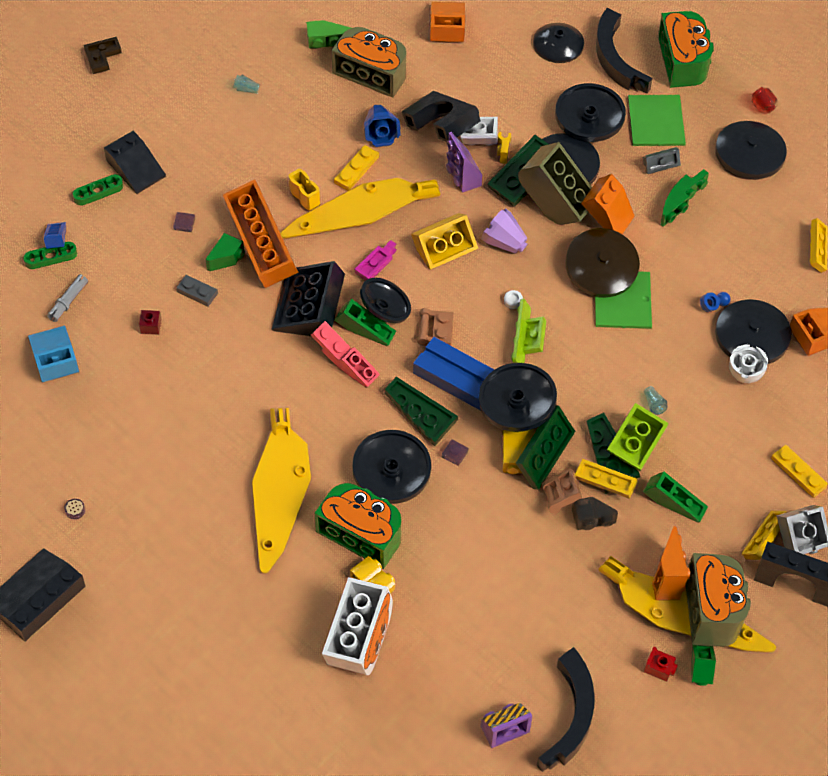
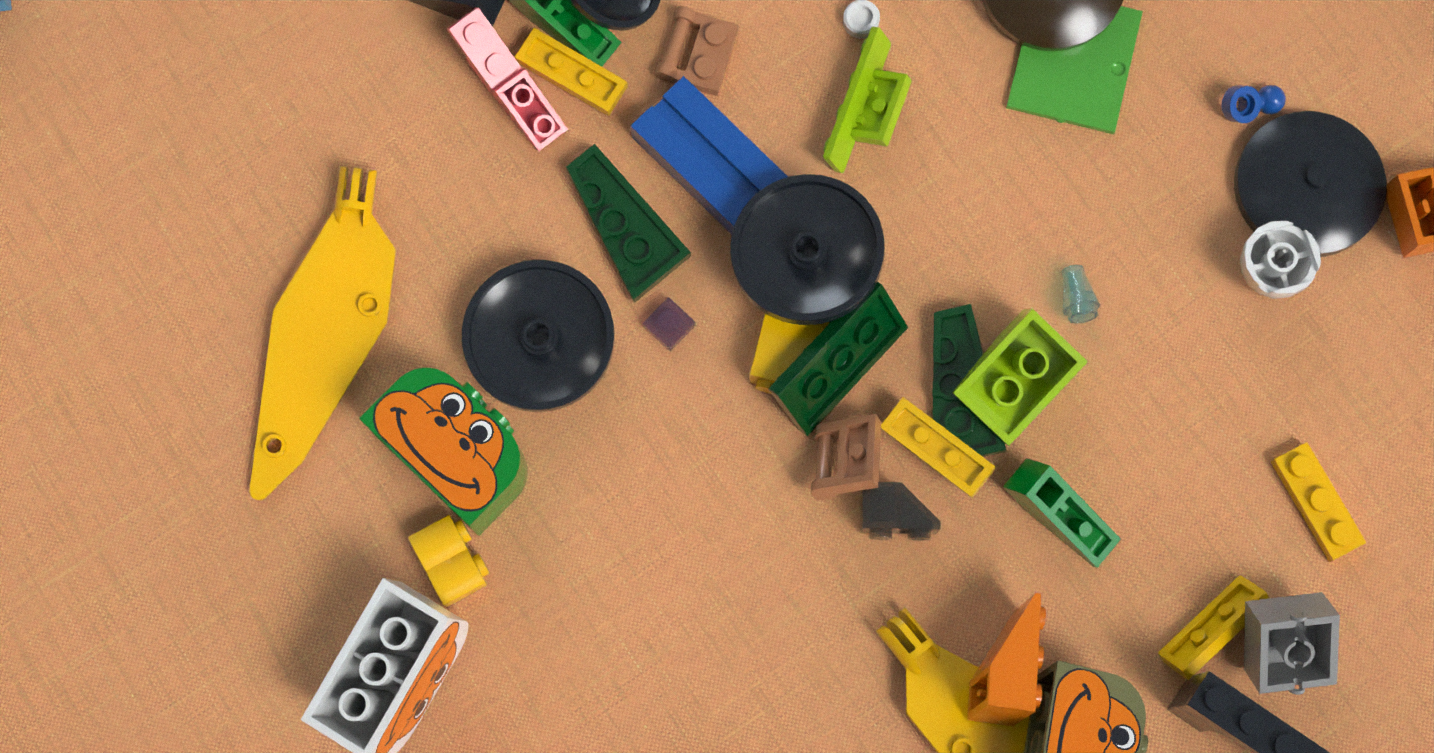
camera: 15 degrees right, 20 degrees up
(376, 347) = (571, 71): none -> yellow plate

